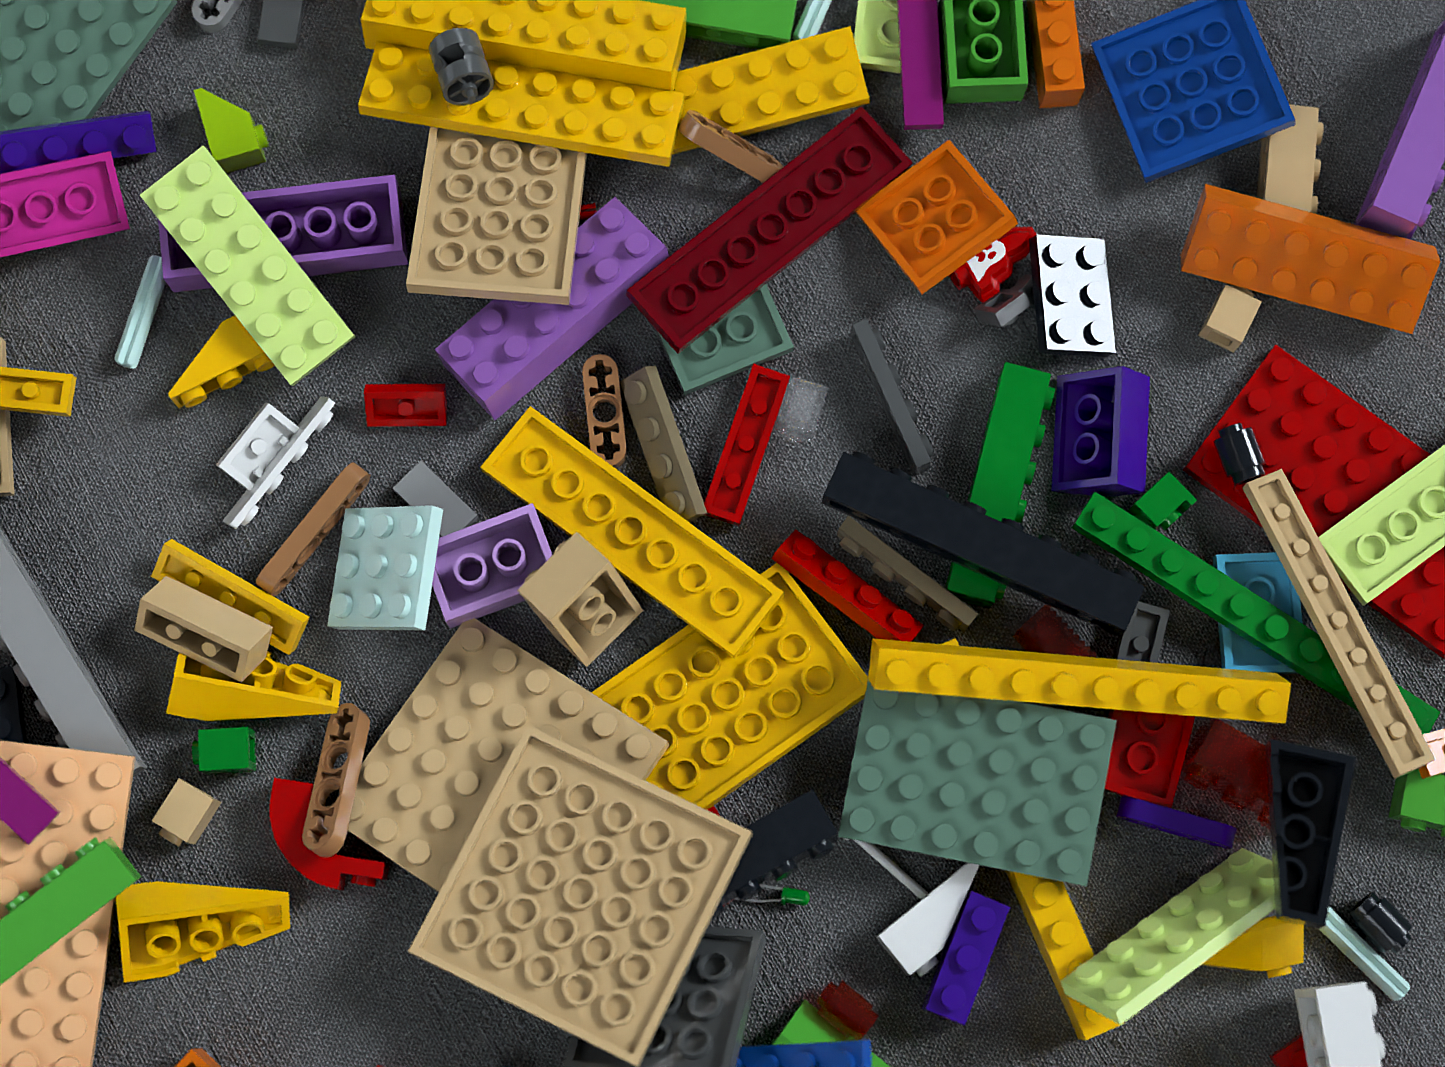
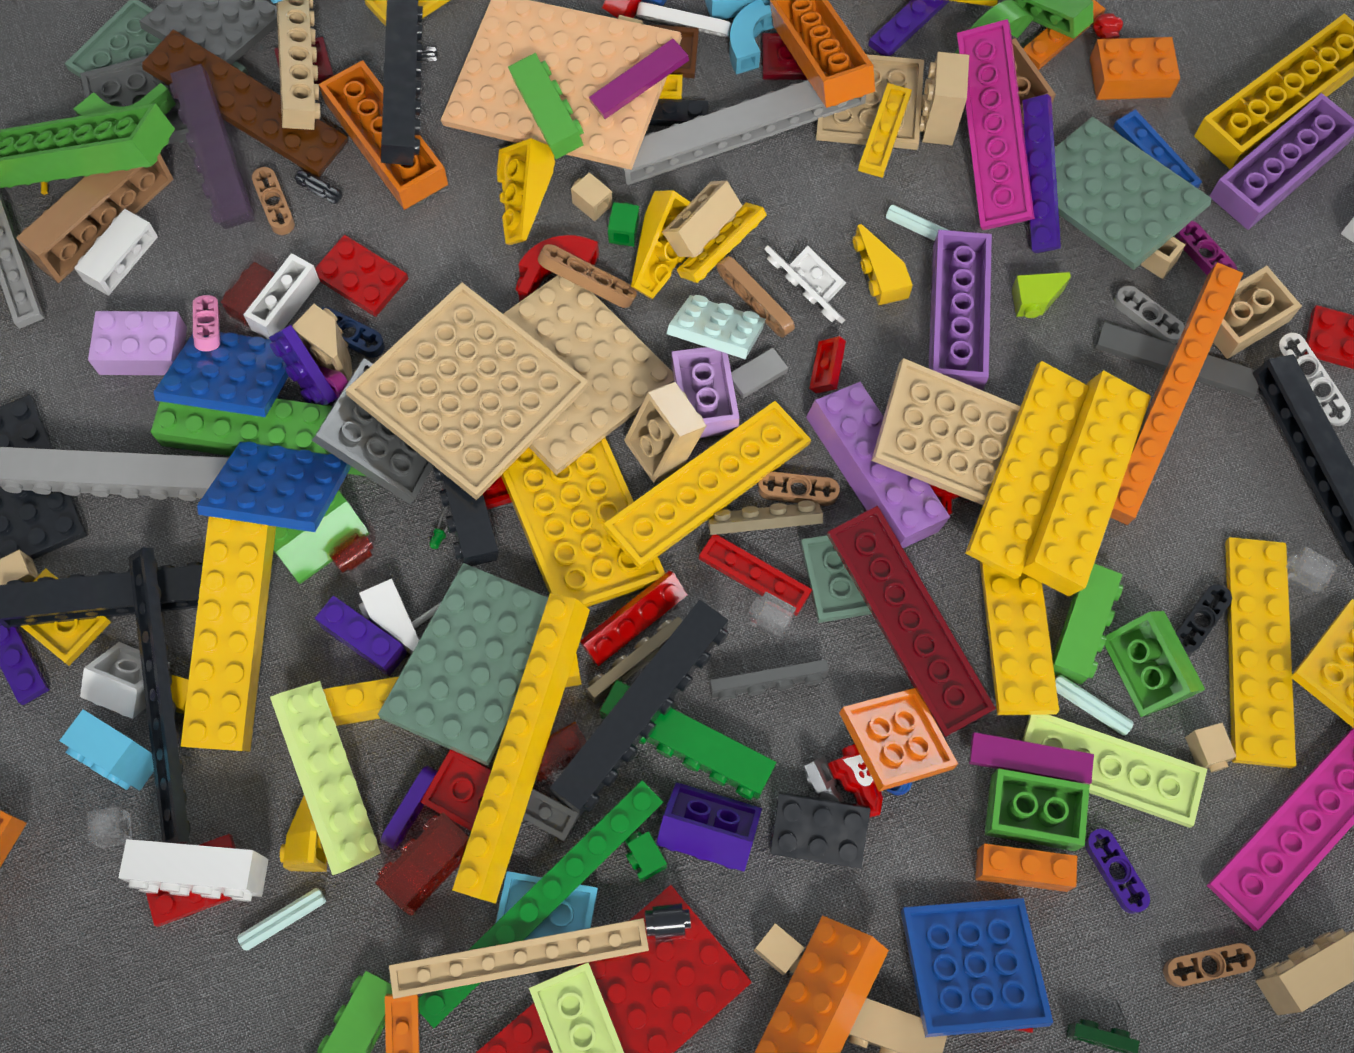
camera: 105 degrees right, 10 degrees down
(247, 265) = (937, 276): yellowish green plate -> none
(461, 66) = (1058, 423): dark grey wheel -> none
(728, 146) = (985, 591): medium nougat beam -> none
(1306, 825) = (371, 874): black wedge -> none
(1381, 923) = (294, 940): black brick -> none

